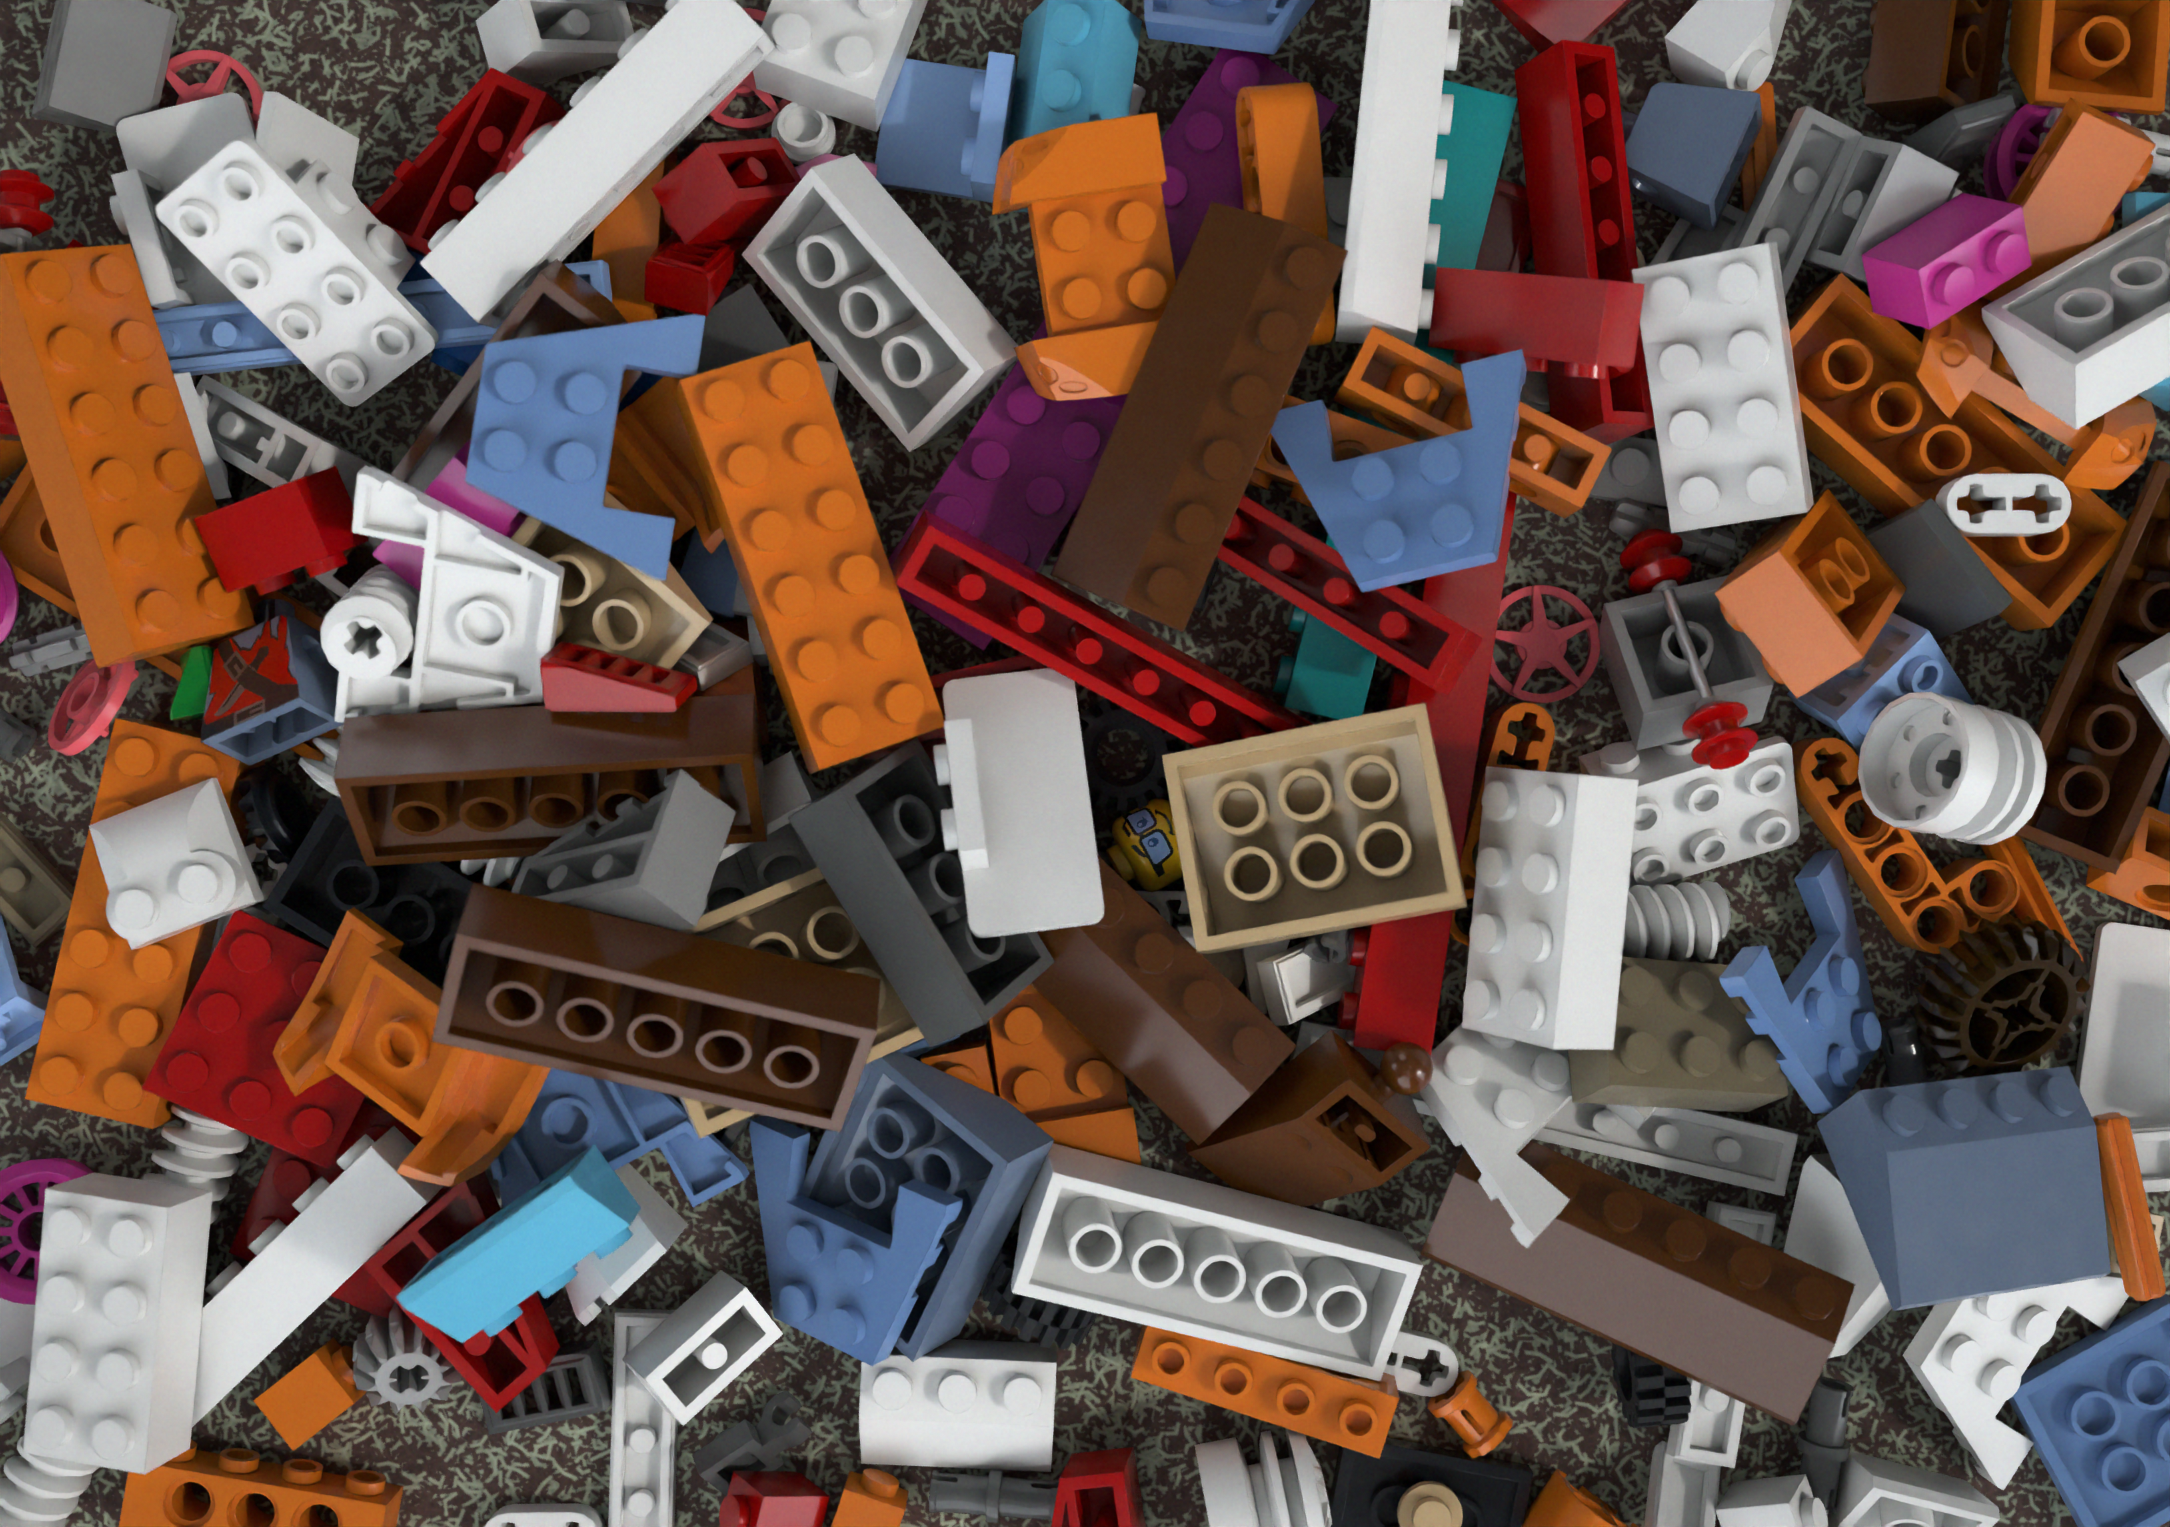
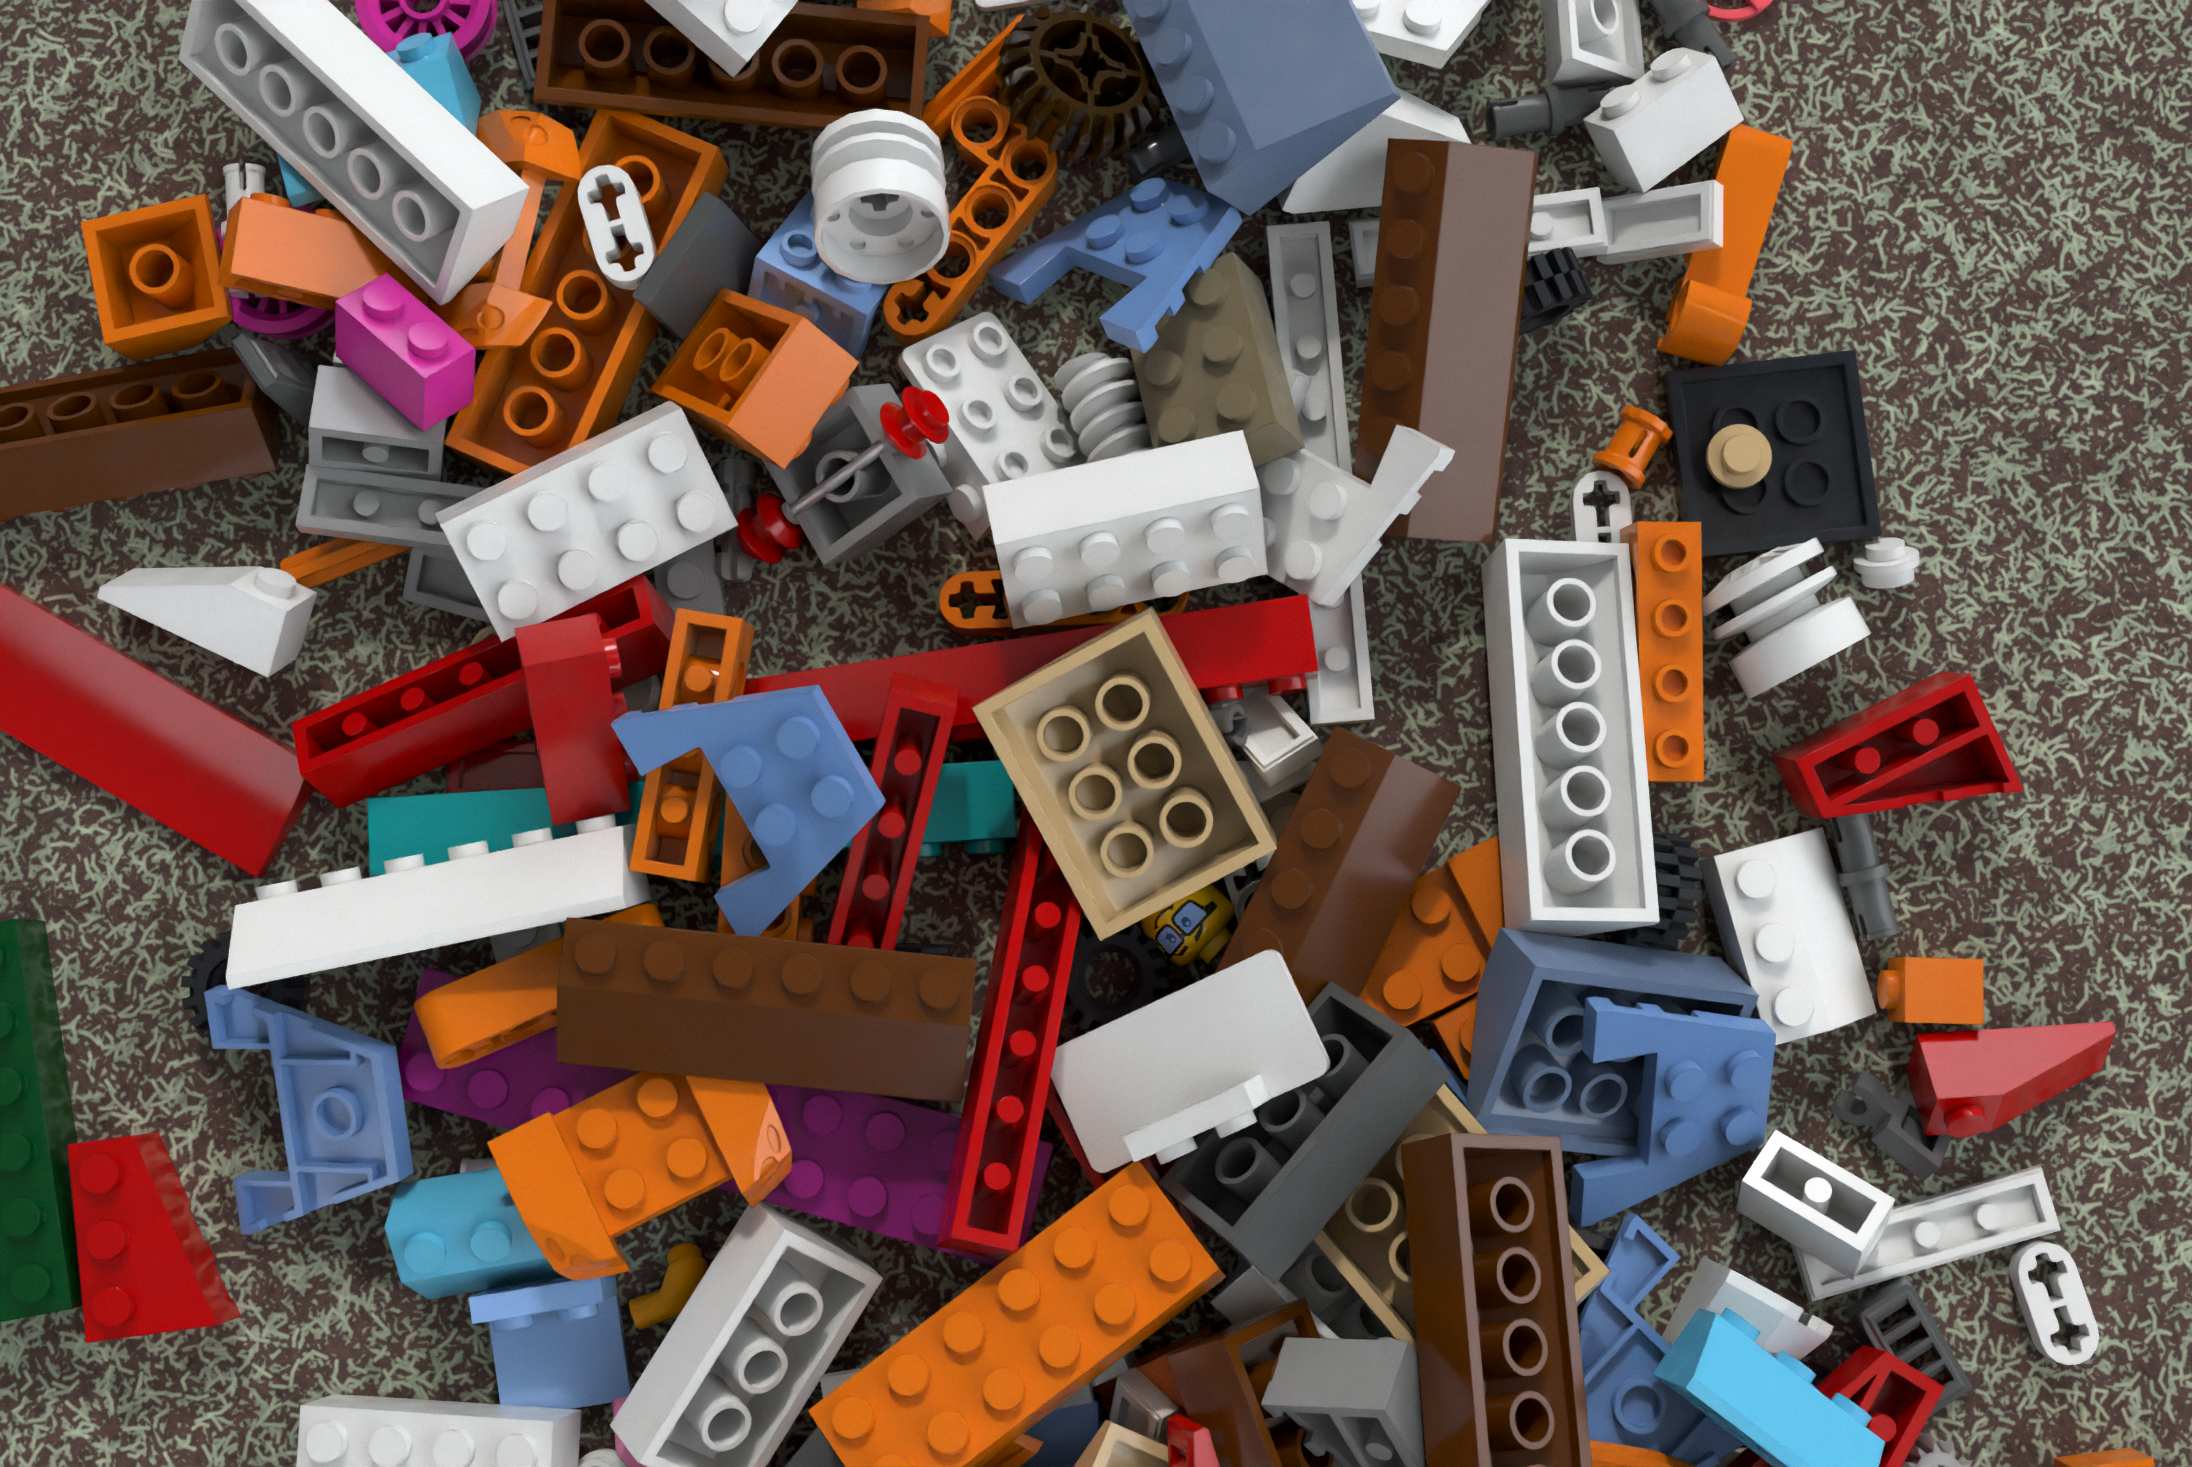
camera: 100 degrees left, 5 degrees down
(967, 261) = (680, 1280): none -> light orange arm
(1323, 1125) = (1403, 675): reddish brown slope -> none
(1544, 643) = (879, 607): coral wheel -> none
(1690, 148) = (366, 620): sand blue torso -> none

